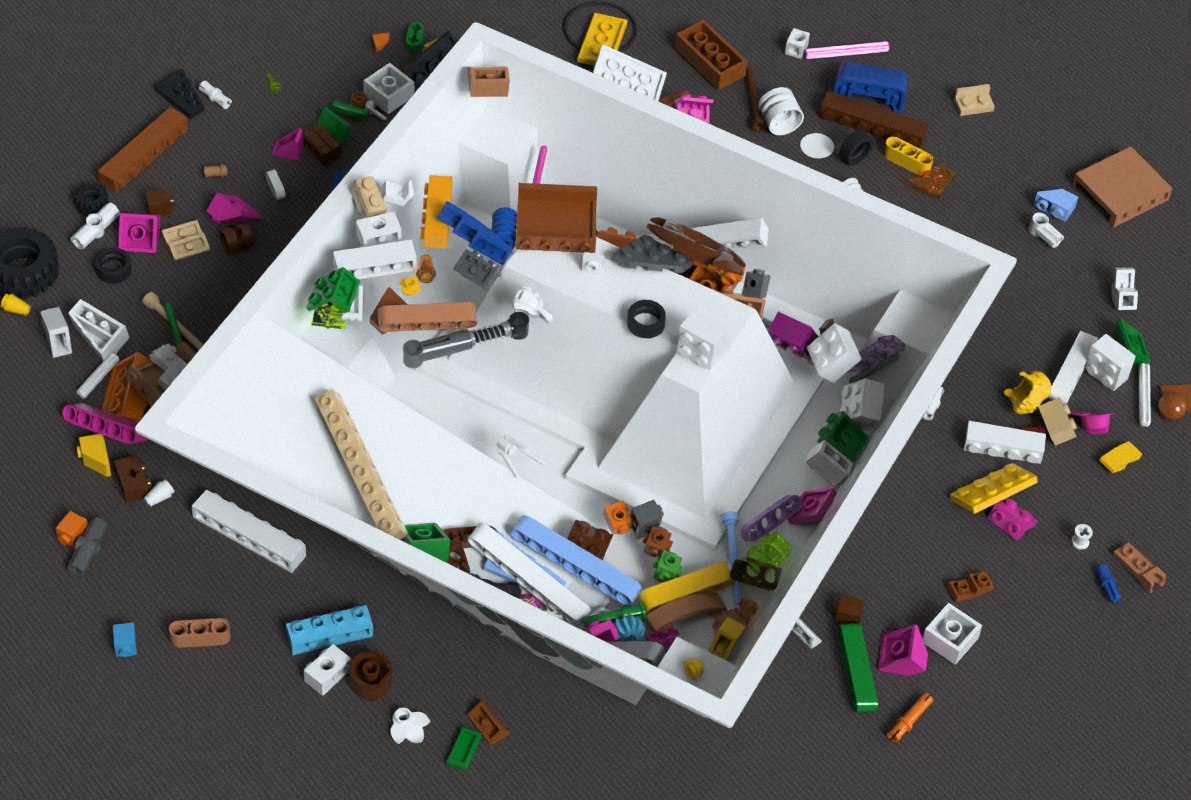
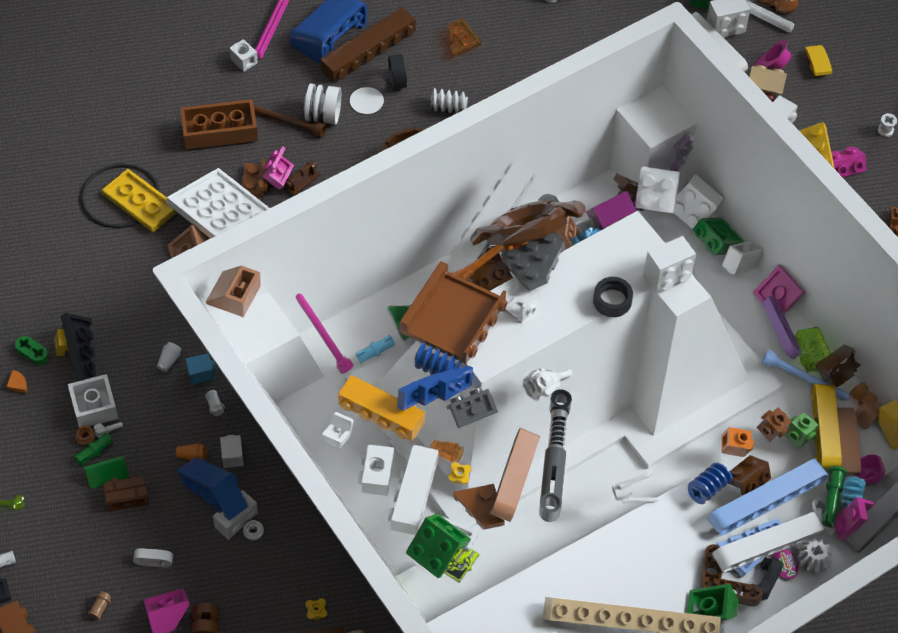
camera: 60 degrees left, 5 degrees up
(289, 146) = (109, 523): dark pink slope -> none
(368, 197) = (339, 460): tan brick -> none
(558, 507) = (709, 483): none -> blue piece
(645, 517) = (755, 418): dark grey brick -> none
(907, 156) = (424, 41): yellow beam -> none

